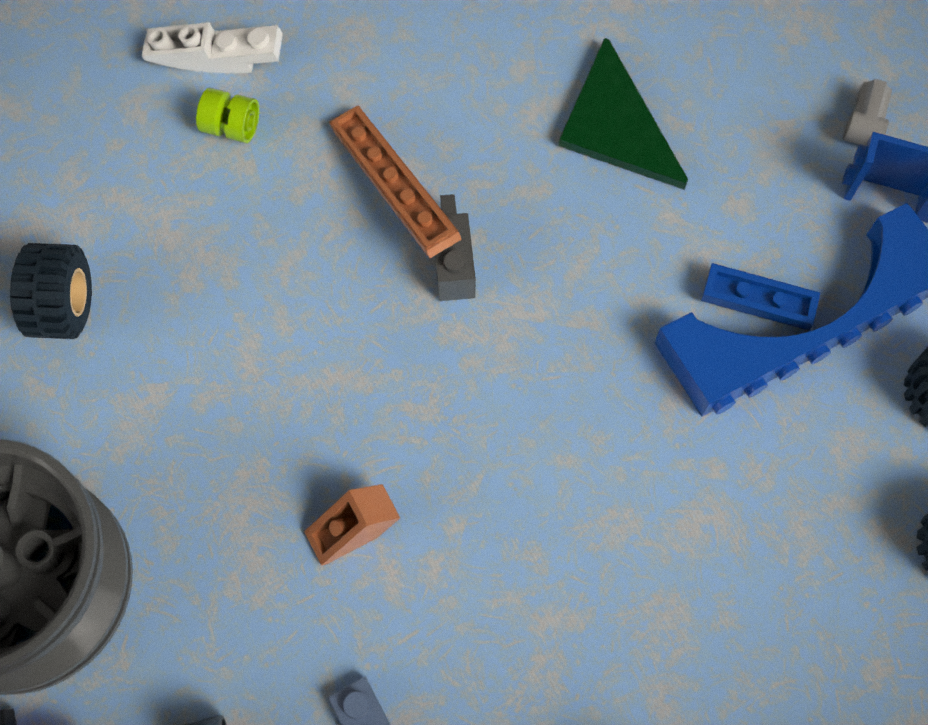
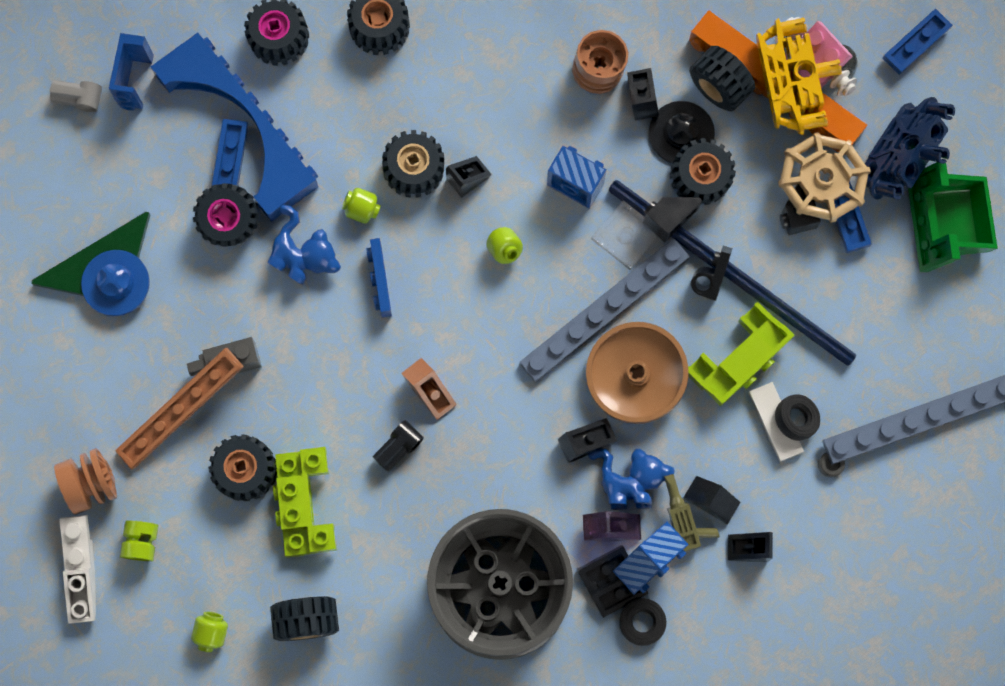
camera: 100 degrees left, 10 degrees up
(85, 182) = (209, 631): none -> lime head
(226, 313) = (295, 503): none -> lime bracket
(278, 470) = (402, 441): none -> black piece
(292, 249) = (242, 468): none -> black wheel
(319, 59) = (82, 482): none -> nougat wheel
(541, 478) = (378, 278): none -> blue plate
(563, 684) = (504, 245): none -> lime head
(589, 131) = (115, 283): none -> blue hat
(590, 388) = (314, 255): none -> blue animal
(662, 468) = (361, 205): none -> lime head
(667, 272) = (225, 215): none -> black wheel
(696, 645) = (466, 175): none -> black slope
(722, 558) = (413, 163): none -> black wheel

